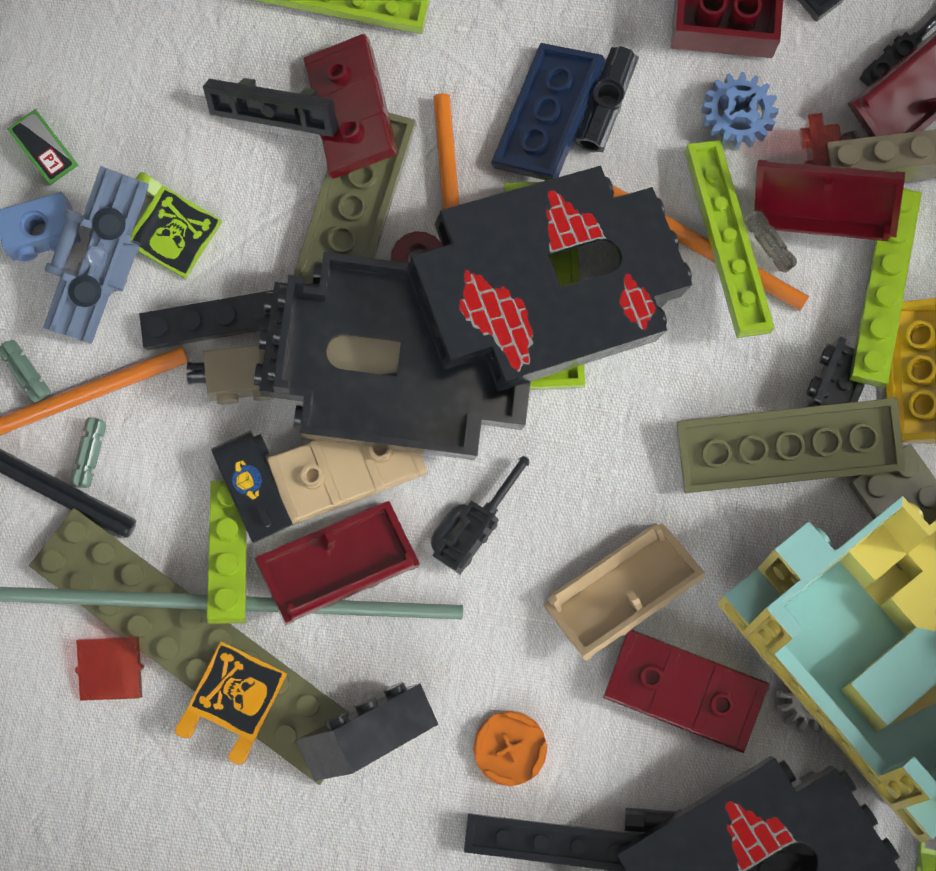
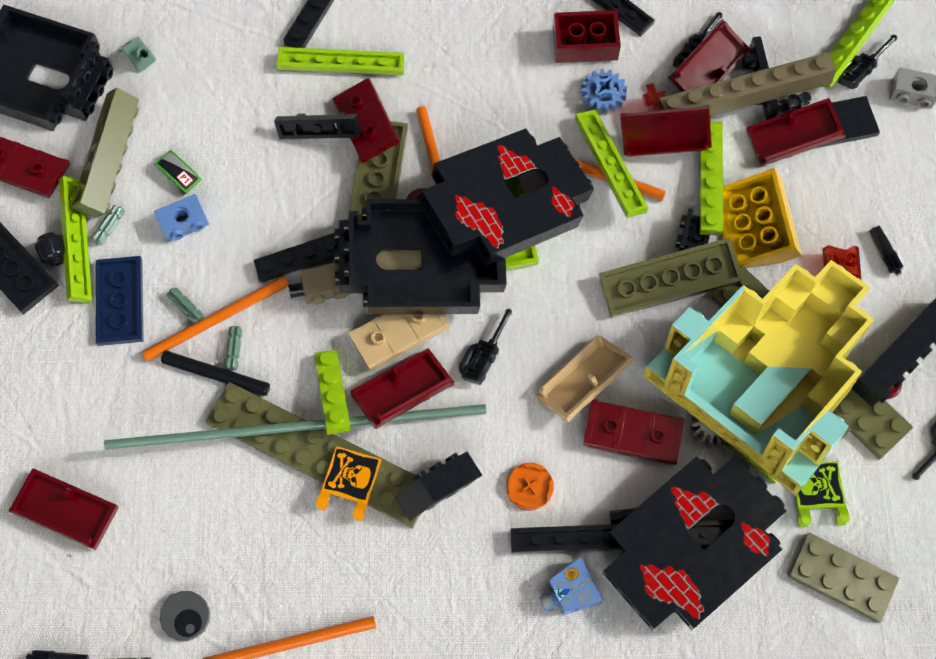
camera: 10 degrees left, 10 degrees down
(107, 260) = (229, 230): sand blue piece -> none
(109, 668) = (266, 476): clear red piece -> none
(173, 229) = (264, 210): flag -> none
(251, 485) = (341, 349): black door -> none
(548, 112) = (487, 107): dark blue tile -> none
(602, 116) = (521, 105): black piece -> none
(770, 241) = (636, 162): clear smoke axle -> none

